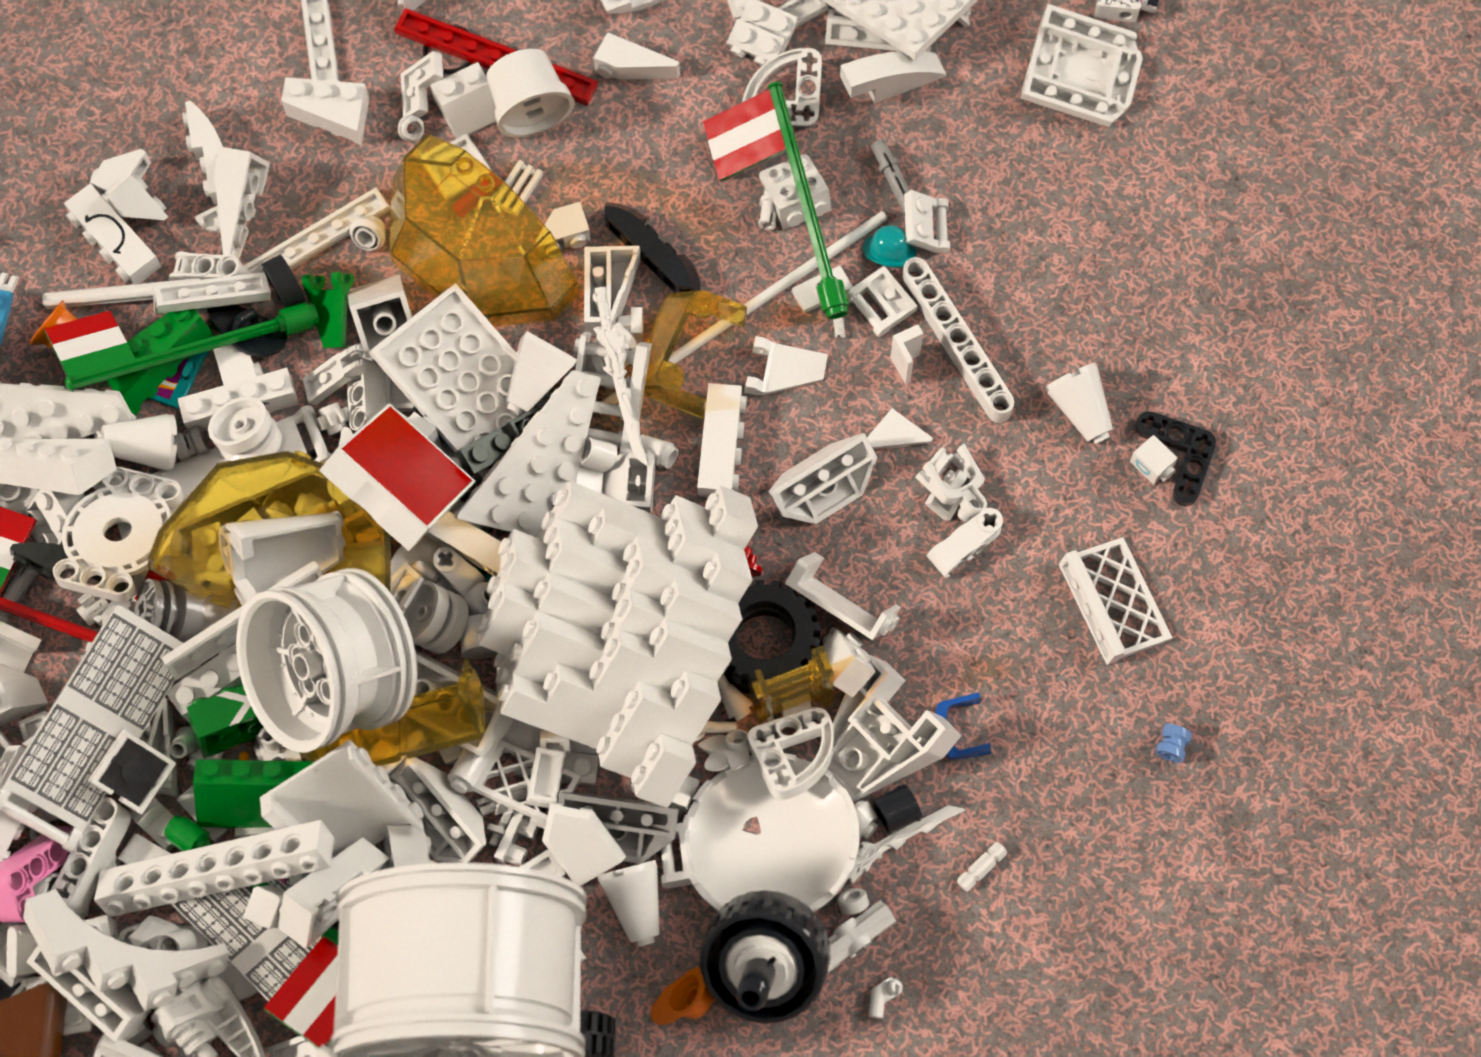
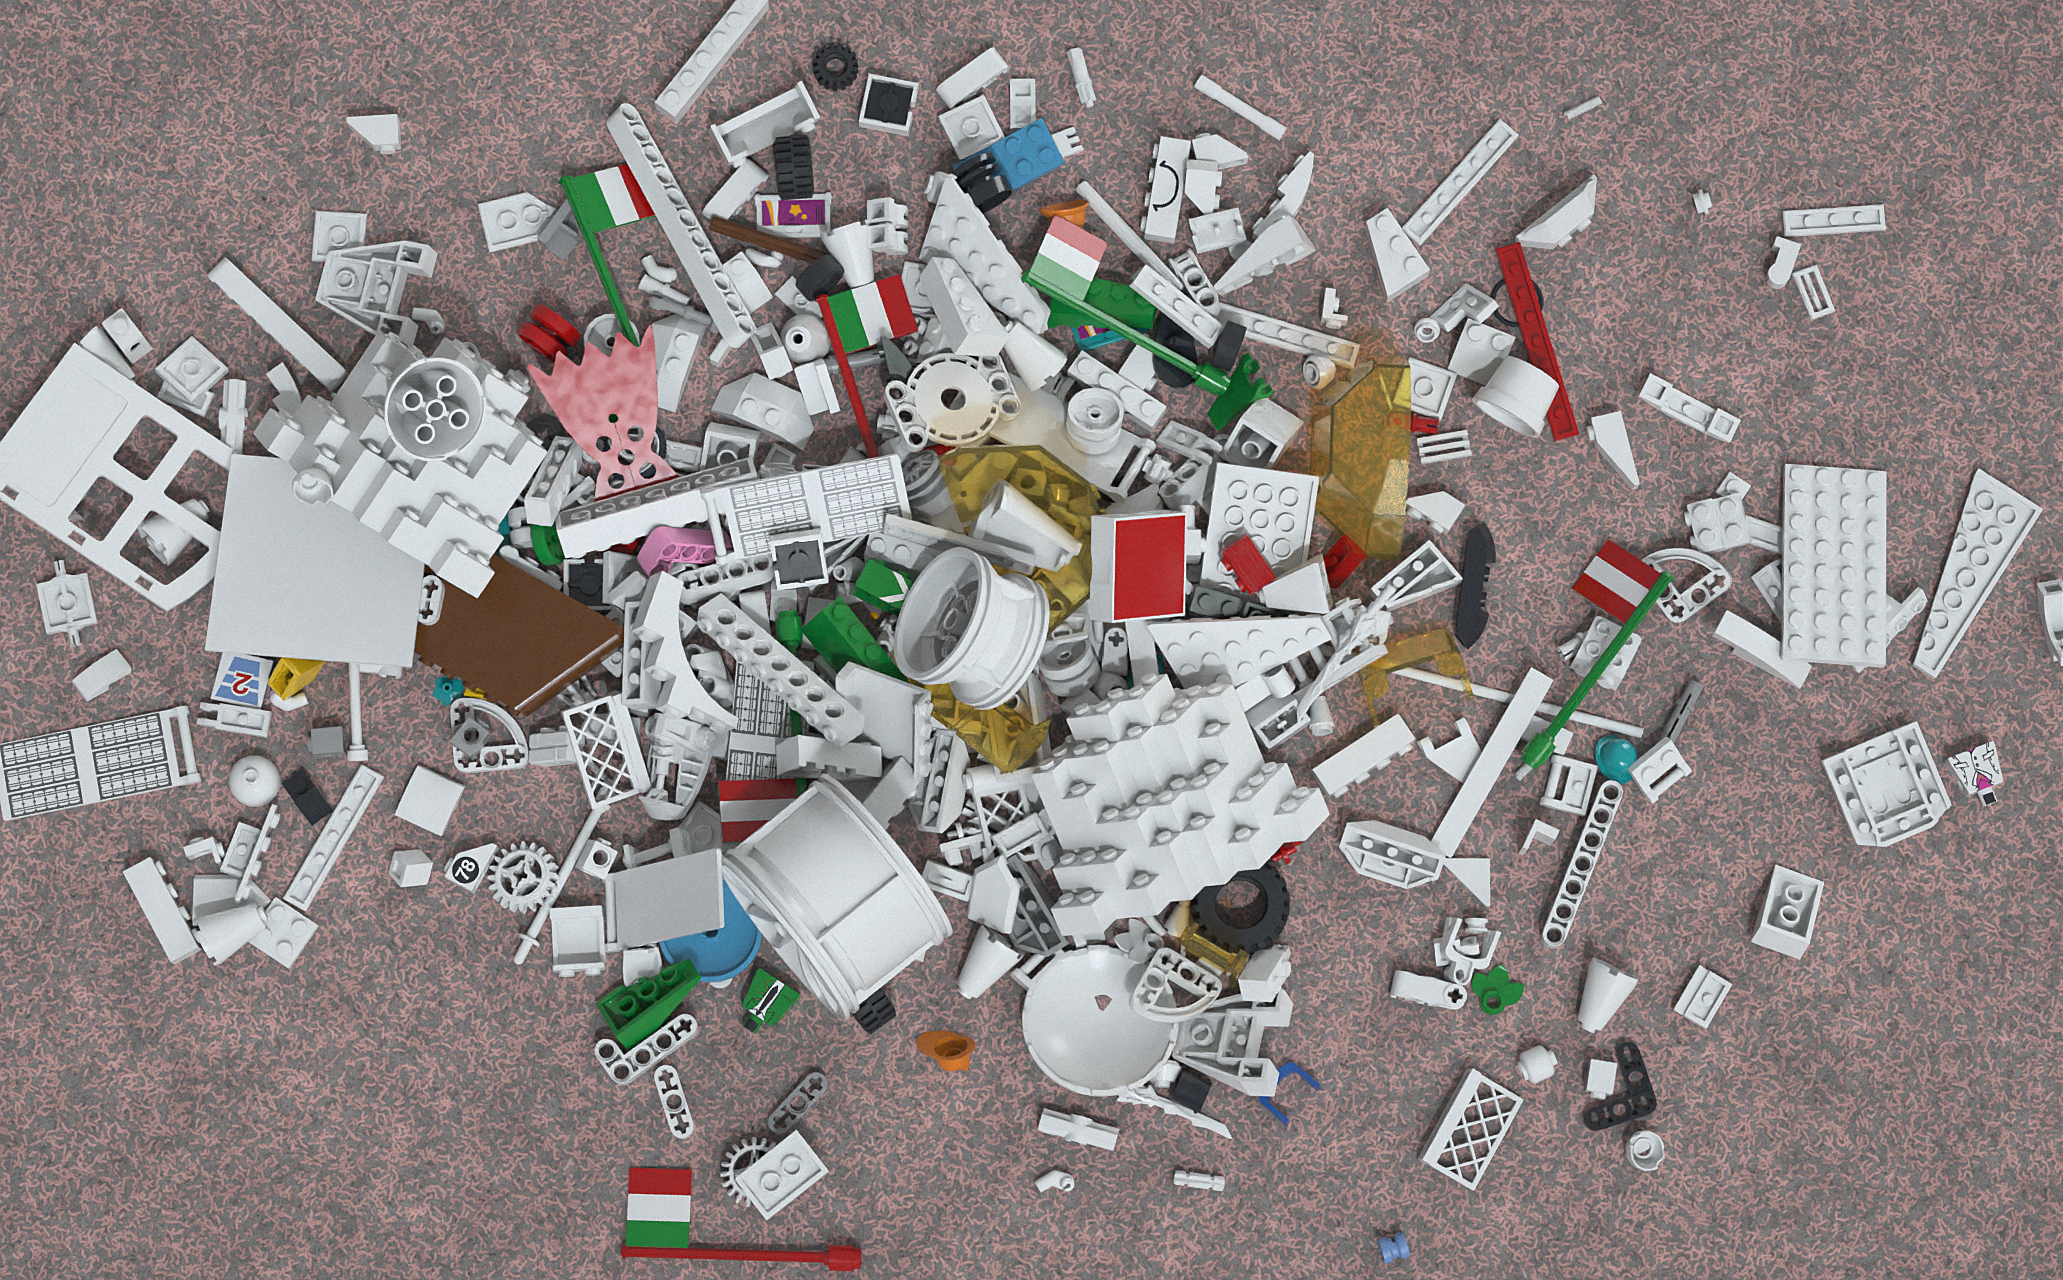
camera: 50 degrees right, 10 degrees up
(72, 140) = (1216, 92): none -> white piece
(181, 220) = (1217, 230): none -> white hinge
(264, 906) = (784, 725): white piece -> none
(326, 187) = (1331, 305): none -> white bracket
(477, 398) = (1247, 565): none -> red brick
(541, 323) = (1342, 560): none -> red slope
(634, 323) = (1402, 621): white tile -> none
(765, 957) = (1014, 1081): black wheel -> none
(802, 581) = (1305, 935): white panel -> none
(810, 343) = (1491, 761): none -> white tile
(853, 901) = (1103, 1111): white tile -> none
(1007, 485) = (1497, 986): none -> green plate
(1101, 502) = (1536, 1064): none -> white head
(1128, 215) = (1788, 912): none -> white slope
(1146, 331) = (1702, 997): none -> white plate
(1254, 467) = (1640, 1142): none -> white hair

